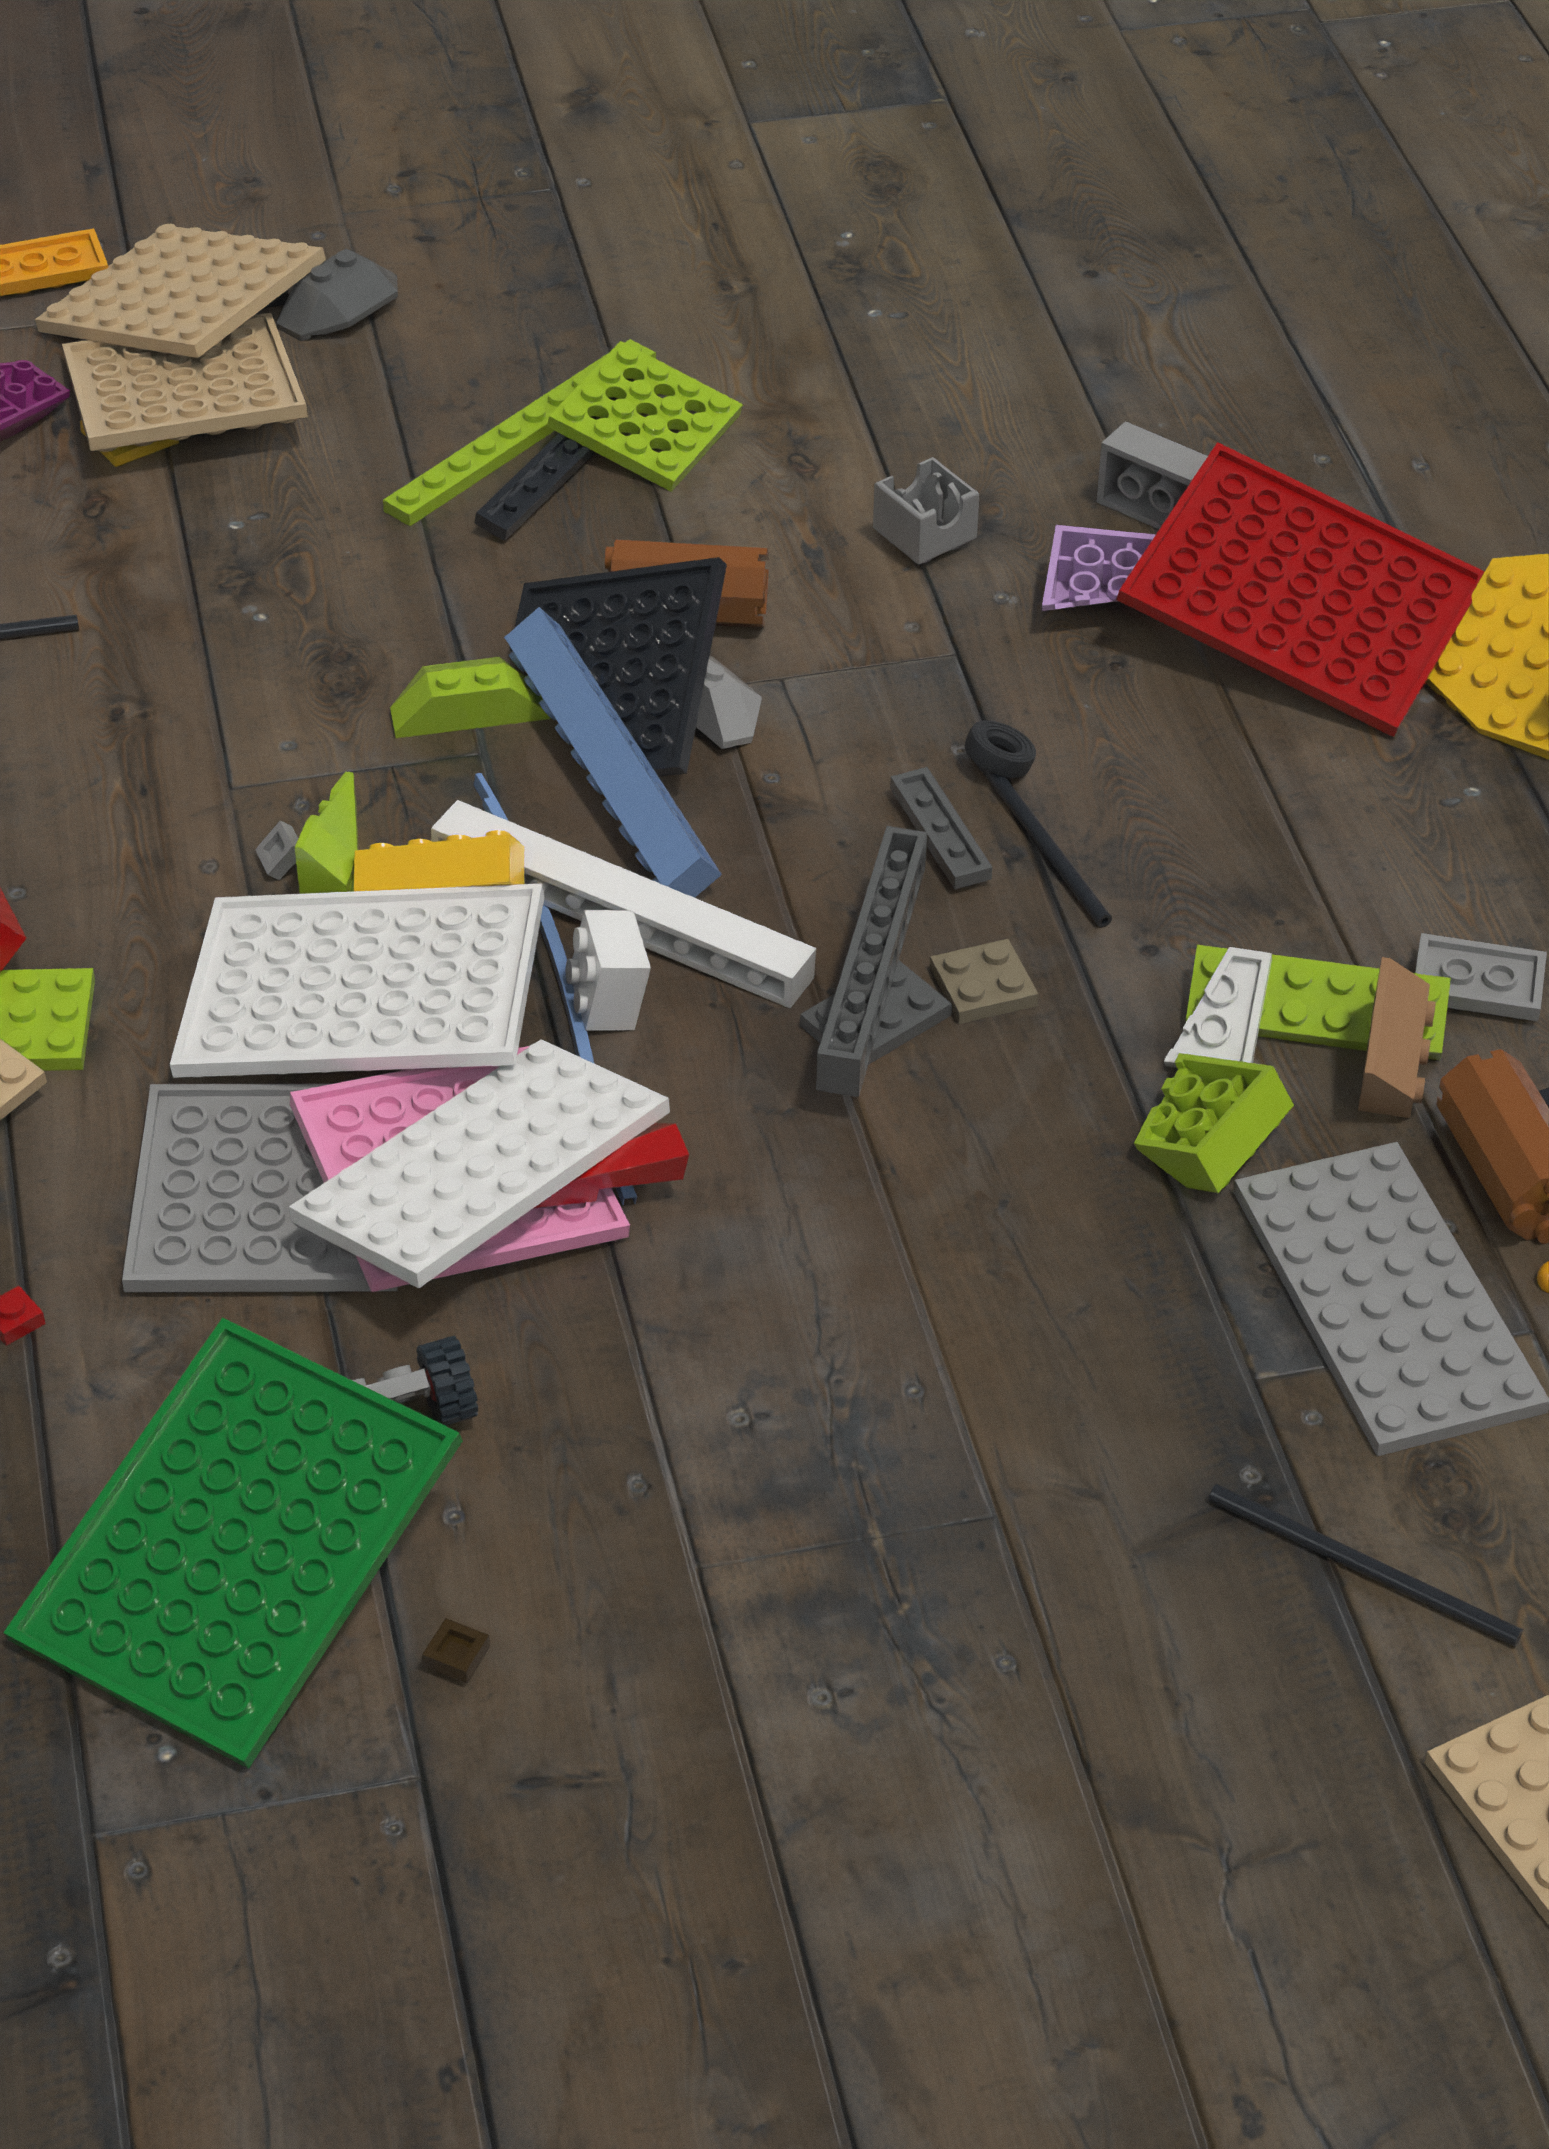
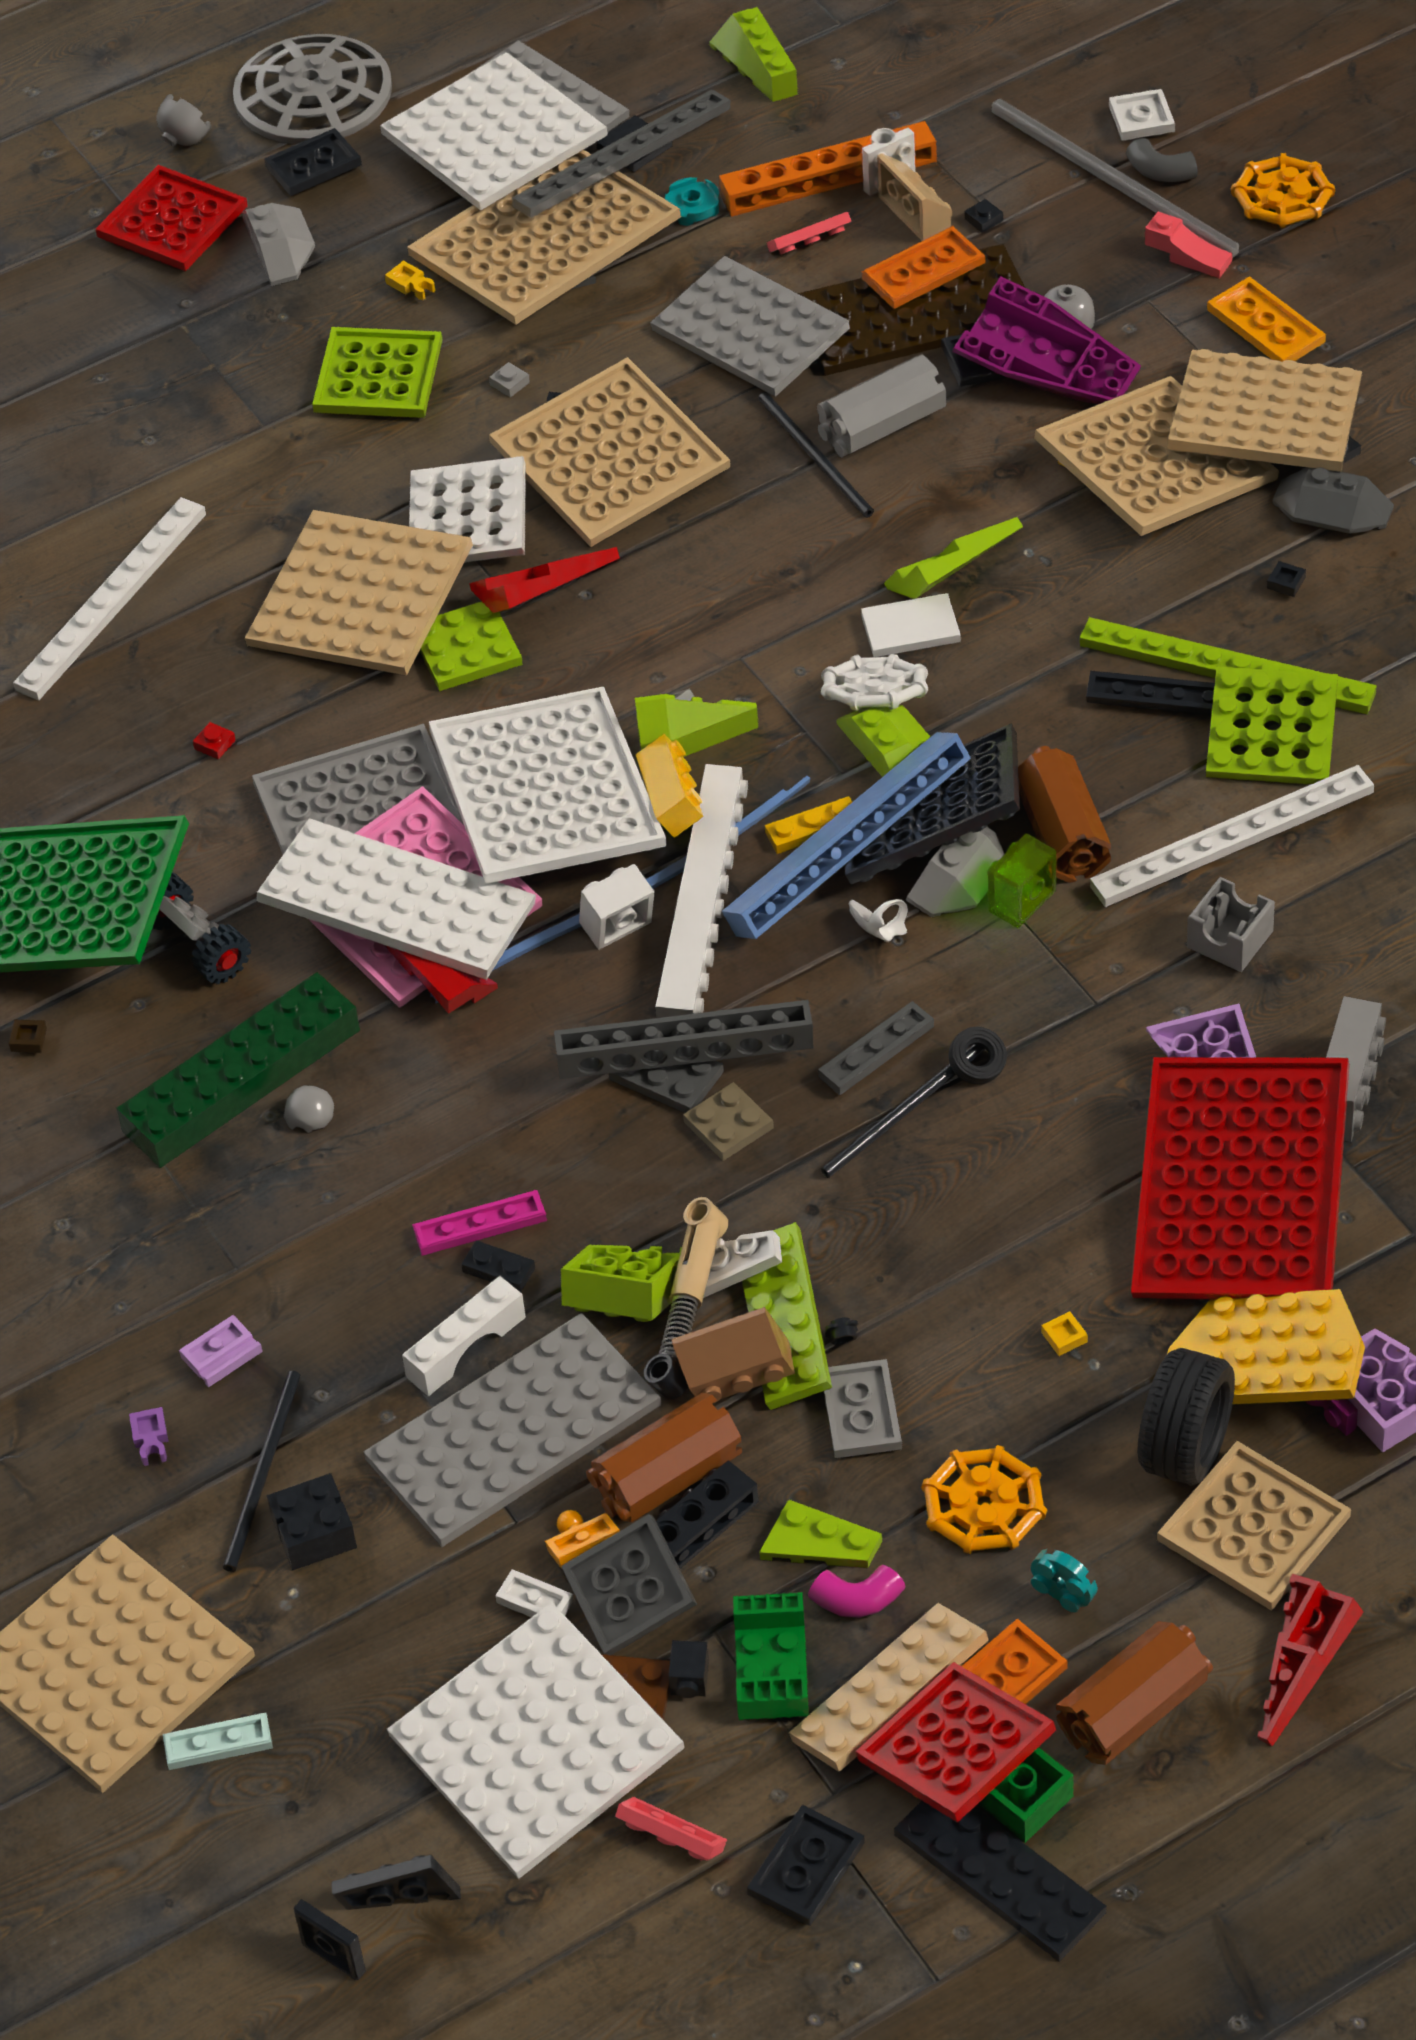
camera: 75 degrees right, 5 degrees up
(219, 579) = (925, 574): none -> lime wedge
(287, 636) = (910, 625): none -> white tile
(377, 673) = (874, 682): none -> white plate
(431, 354) = (1286, 578): none -> black plate
(552, 793) = (796, 829): none -> yellow plate
(663, 1422) = (238, 1069): none -> dark green brick
(760, 1368) = (308, 1108): none -> light grey hair
(762, 771) = (875, 924): none -> white piece
(770, 638) = (1021, 880): none -> clear neon green brick
(781, 493) = (1231, 835): none -> white plate
(1036, 1247) = (479, 1222): none -> dark pink tile
(1117, 1244) = (491, 1262): none -> black plate
(1147, 1557) = (220, 1350): none -> lavender plate
(1223, 1039) = (704, 1229): none -> piece
(1259, 1324) = (435, 1356): none -> white arch
(1259, 1669) = (149, 1433): none -> medium lavender plate
(1361, 954) = (842, 1330): none -> black plate
(1433, 792) = (1064, 1333): none -> yellow plate
(1475, 1508) = (313, 1523): none -> black piece

